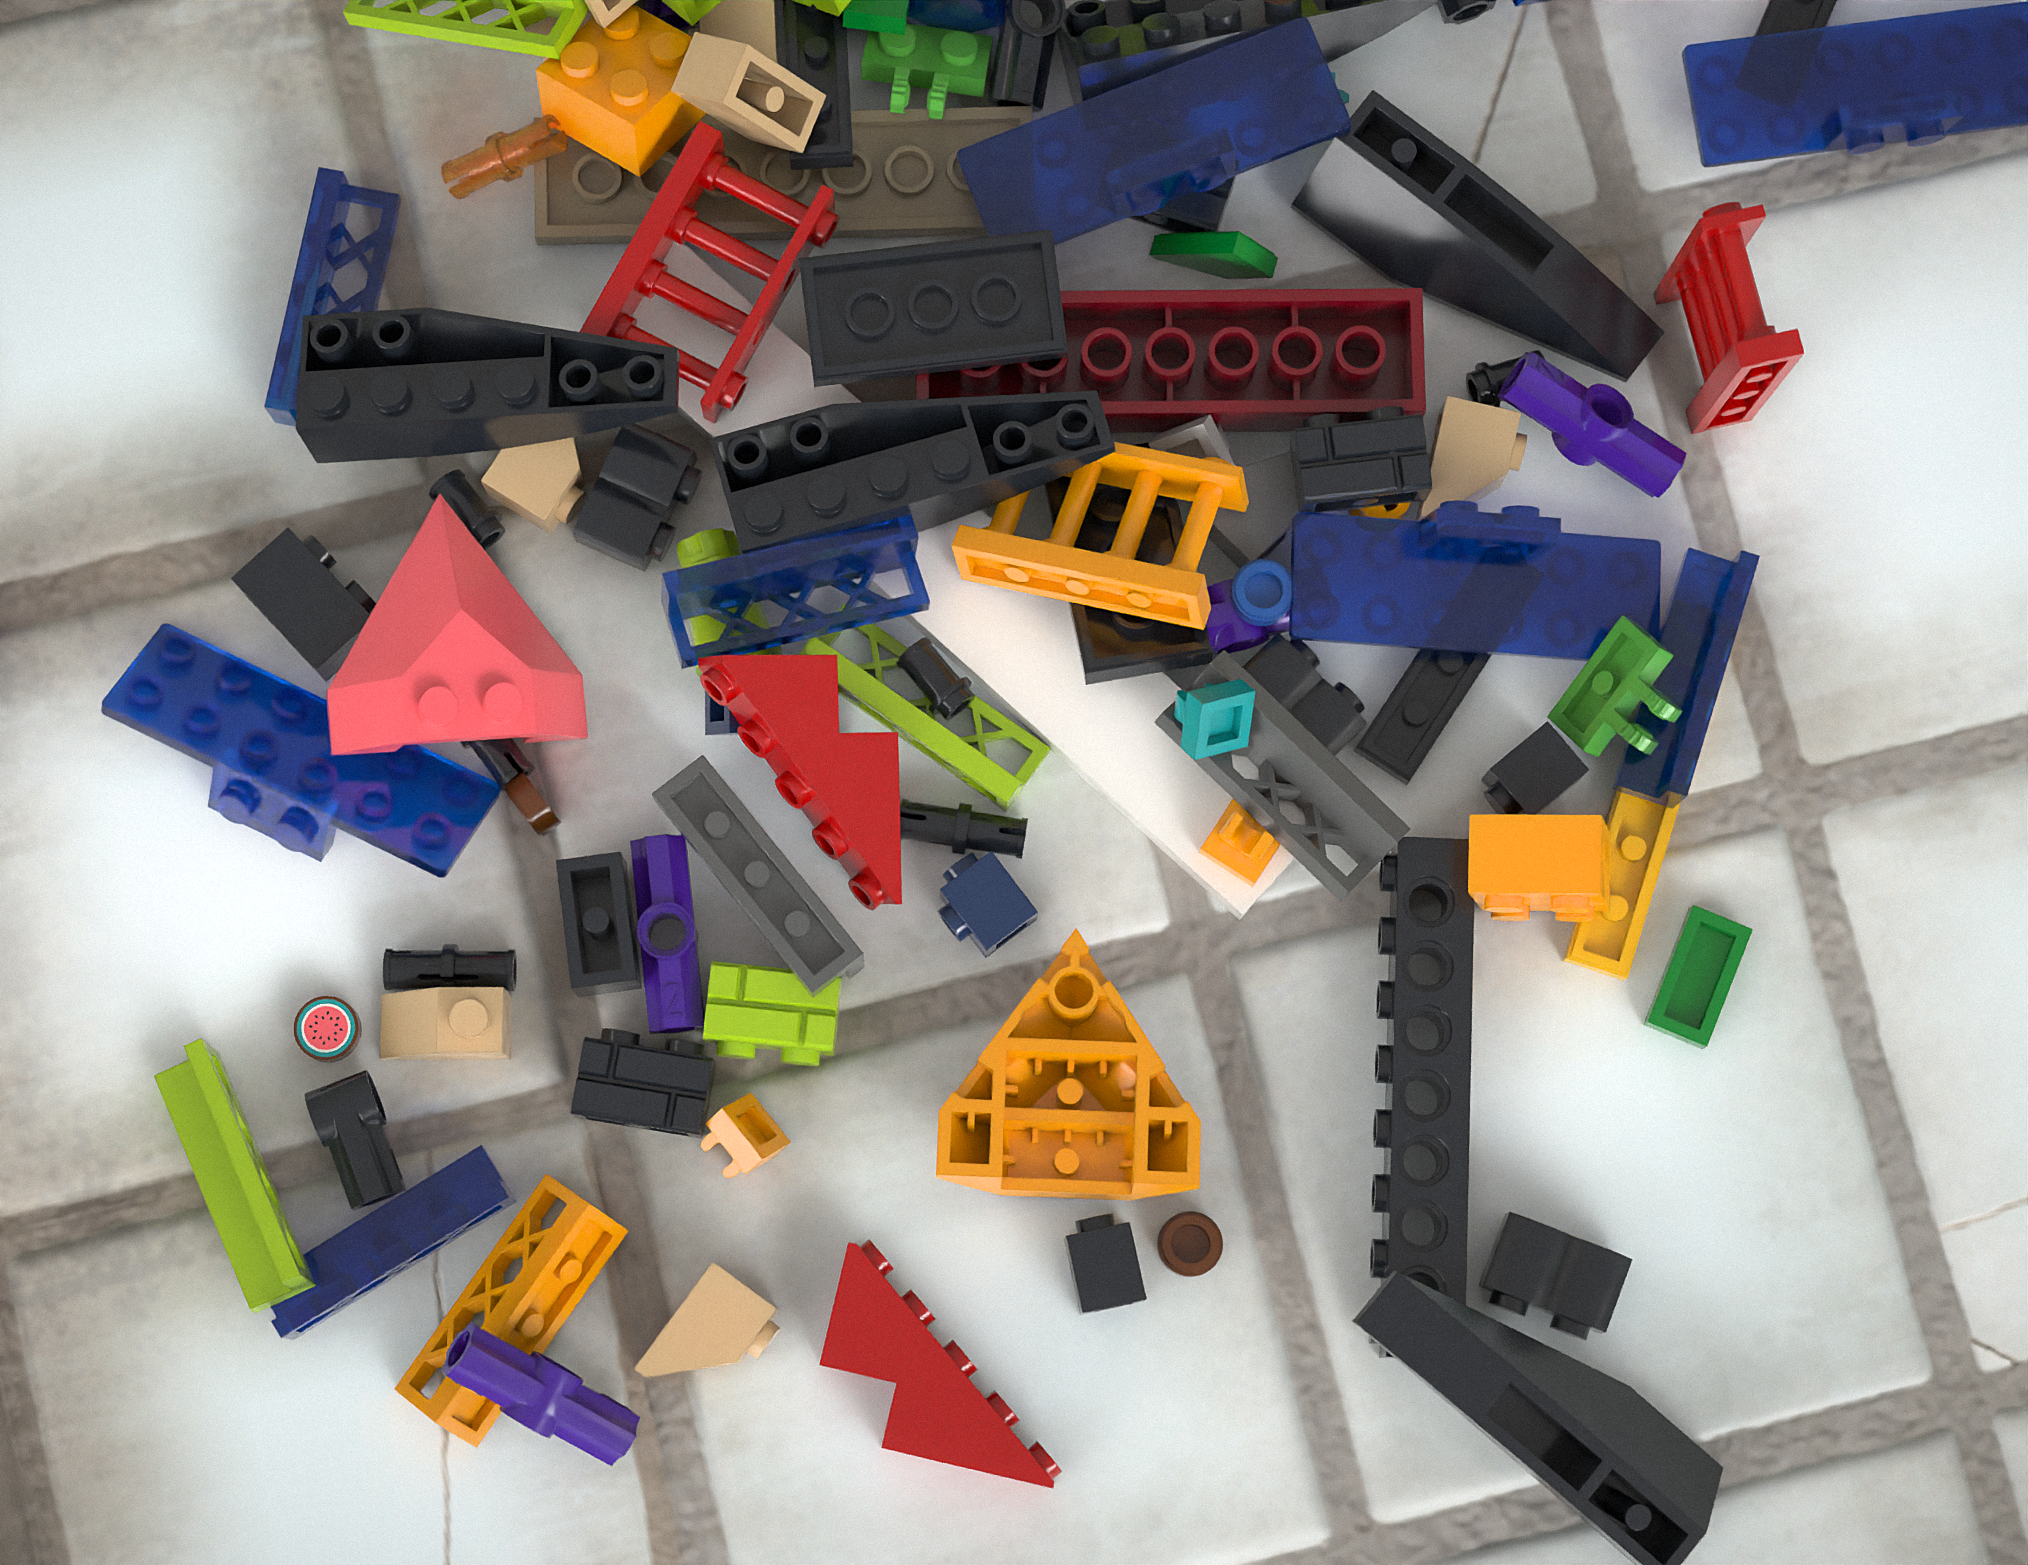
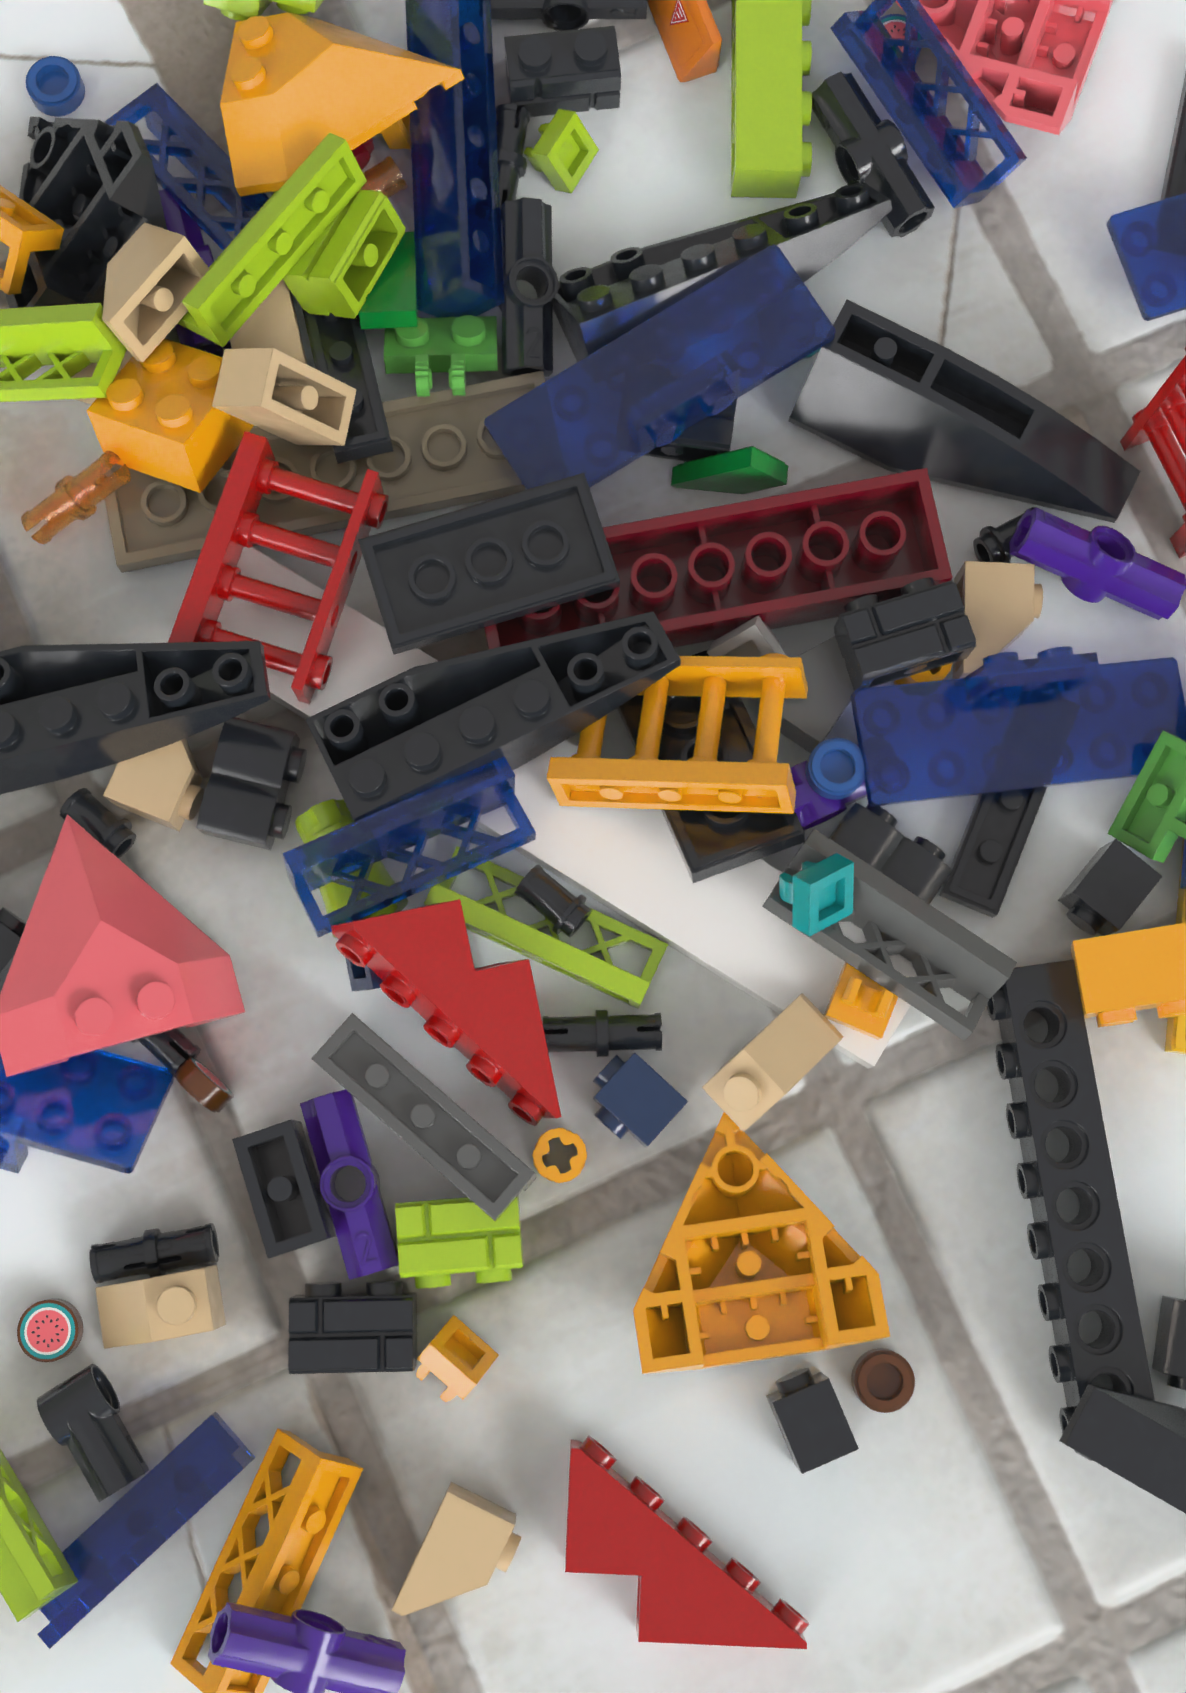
camera: 10 degrees left, 0 degrees up
(905, 932) = (543, 1148): none -> light orange bush
(1134, 888) = (772, 1062): none -> tan slope

